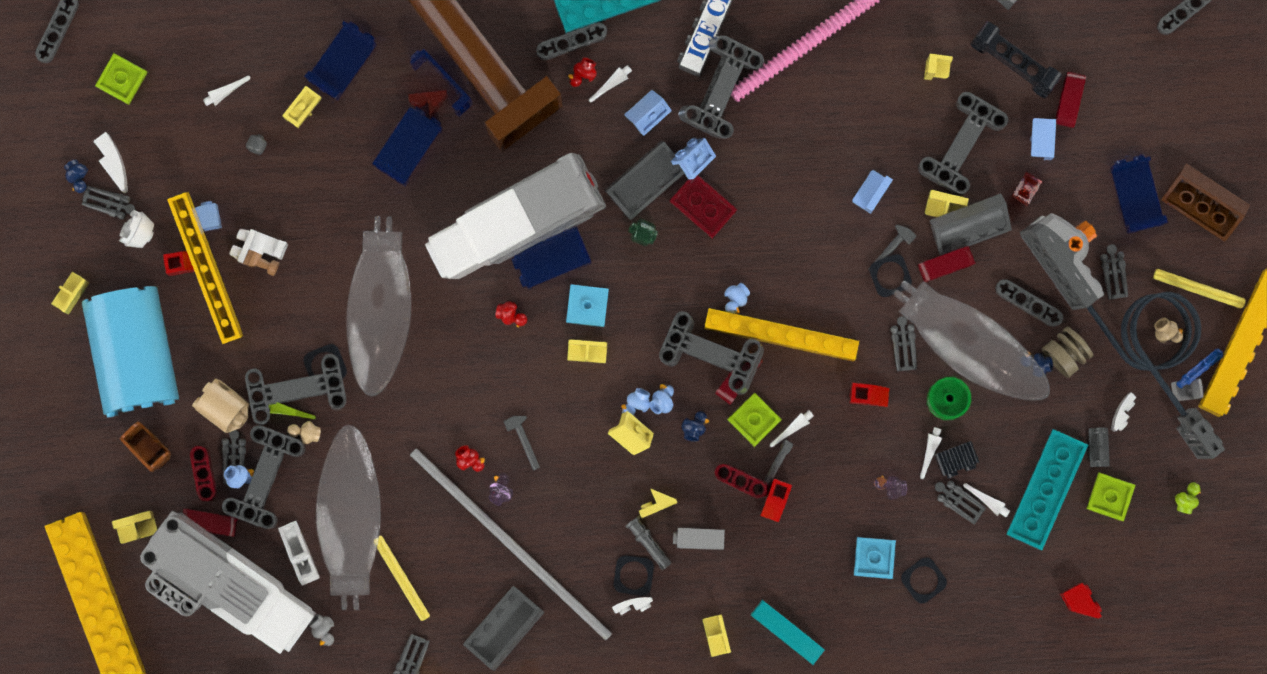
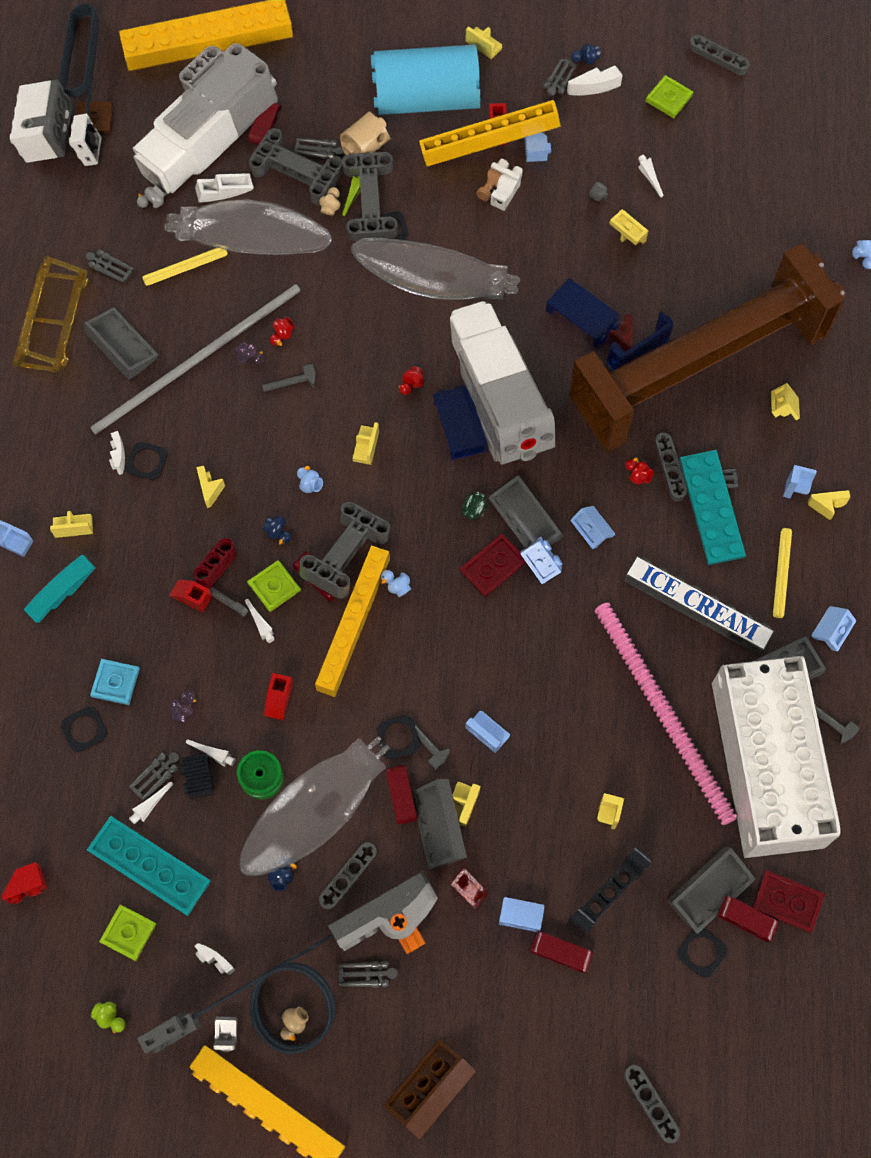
camera: 100 degrees right, 15 degrees down
(135, 527) = (274, 66): light yellow panel -> none
(137, 230) = (531, 90): white cone -> none
(146, 446) = (338, 76): dark orange piece -> none
(197, 465) = (308, 121): dark red beam -> none
(237, 476) = (300, 143): light blue animal -> none
(342, 60) = (668, 269): clear blue panel -> none
(587, 305) = (410, 450): medium azure plate -> none
(617, 78) = (629, 501): white piece -> none
(632, 434) = (279, 470): light yellow panel -> none
(643, 535) = (181, 470): dark grey pin -> none
(662, 400) = (306, 501): light blue animal -> none
(699, 538) = (165, 516): light grey window -> none
(721, 87) = (610, 592): dark grey beam -> none
(902, 321) = (348, 741): dark grey piece -> none
(963, 143) = (526, 829): dark grey beam -> none
(1071, 349) = (289, 908): dark tan wheel -> none
(1099, 447) = (182, 928): dark grey hinge -> none
(1137, 194) = (448, 1013): clear blue panel -> none
(1199, 288) = (335, 1067): light yellow axle -> none
(1200, 368) = (246, 1052): blue piece -> none

